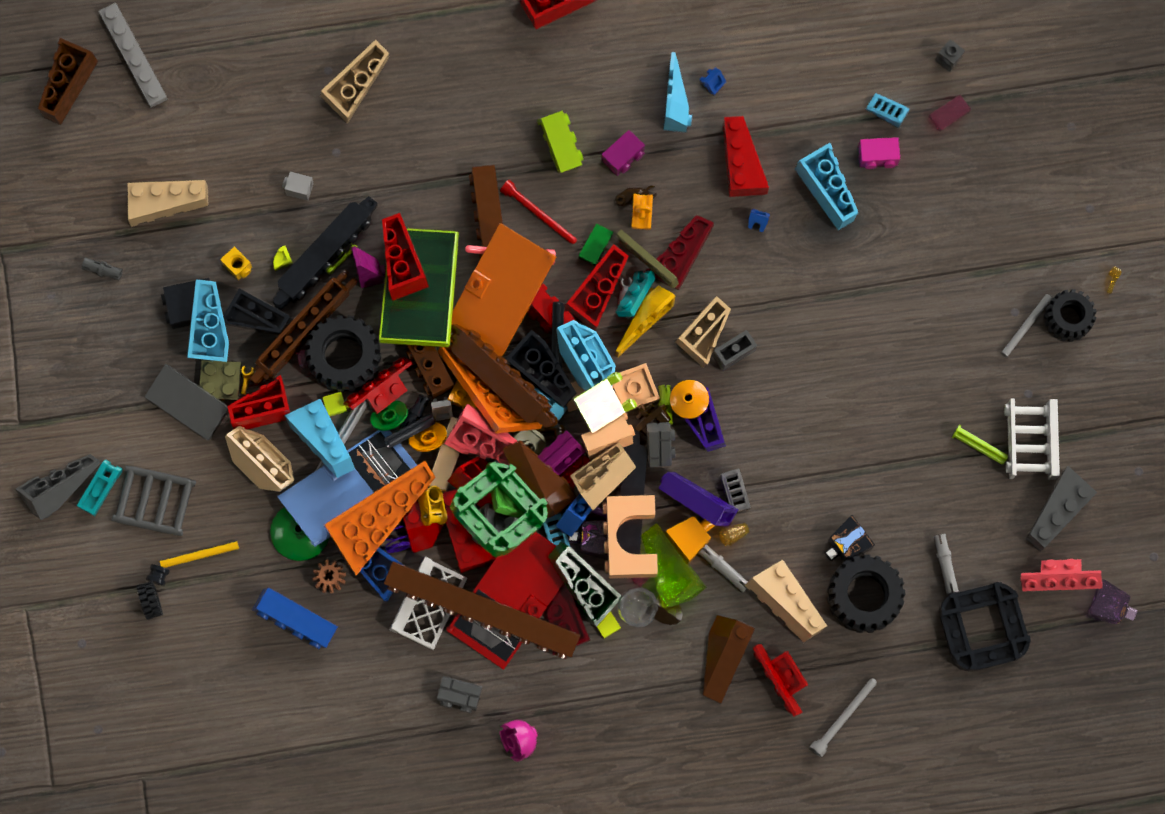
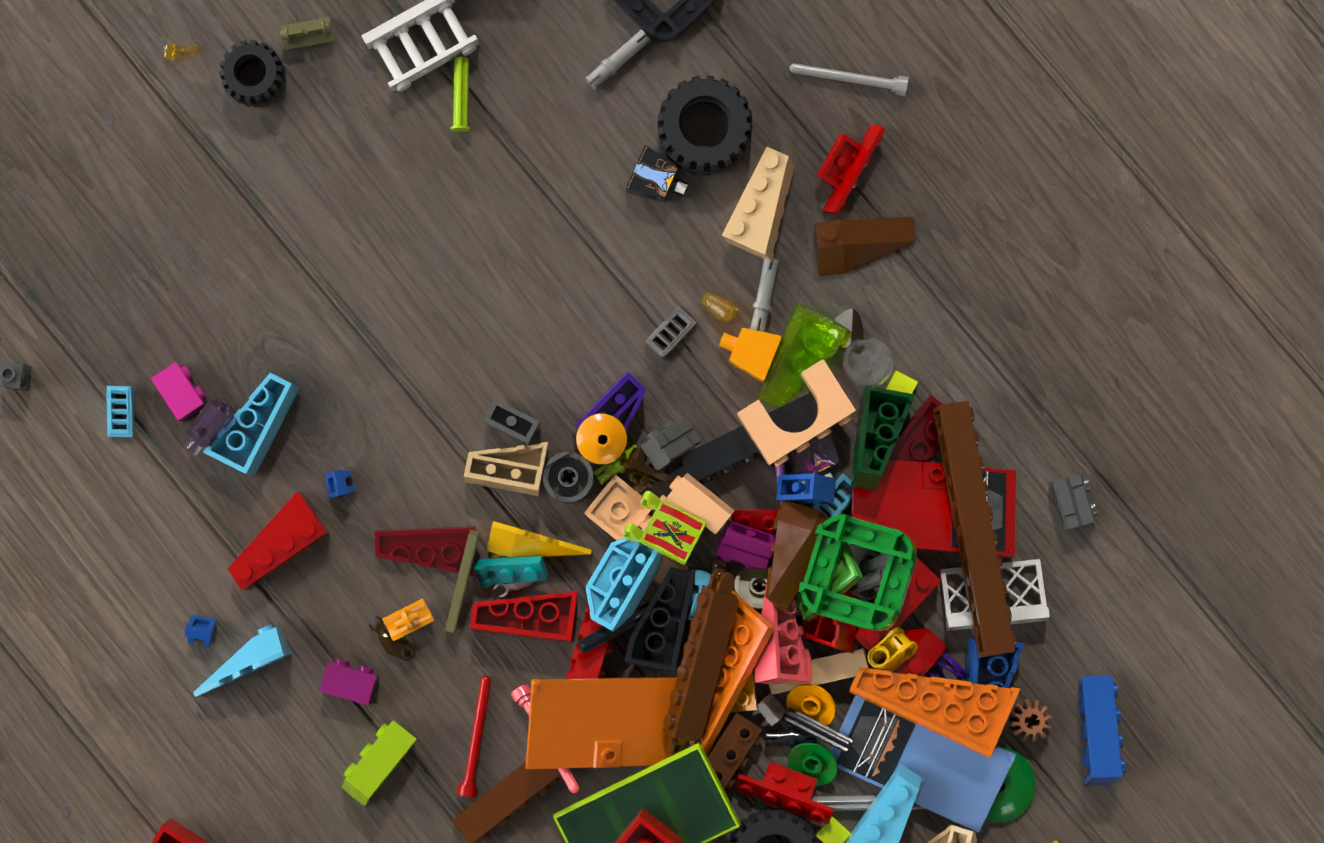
camera: 115 degrees left, 10 degrees up
(519, 738) = (1082, 407): dark pink cylinder -> none
(595, 244) = (476, 650): green tile -> none
(603, 474) = (747, 483): tan wedge -> none
(682, 357) = (554, 474): none -> dark grey brick
(698, 499) = (707, 366): dark purple slope -> none
(847, 158) = (208, 424): none -> clear purple torso
(949, 113) = (83, 338): clear pink tile -> none
(1026, 325) = (290, 117): light grey bar -> none
(1079, 367) = (307, 33): none -> olive hinge

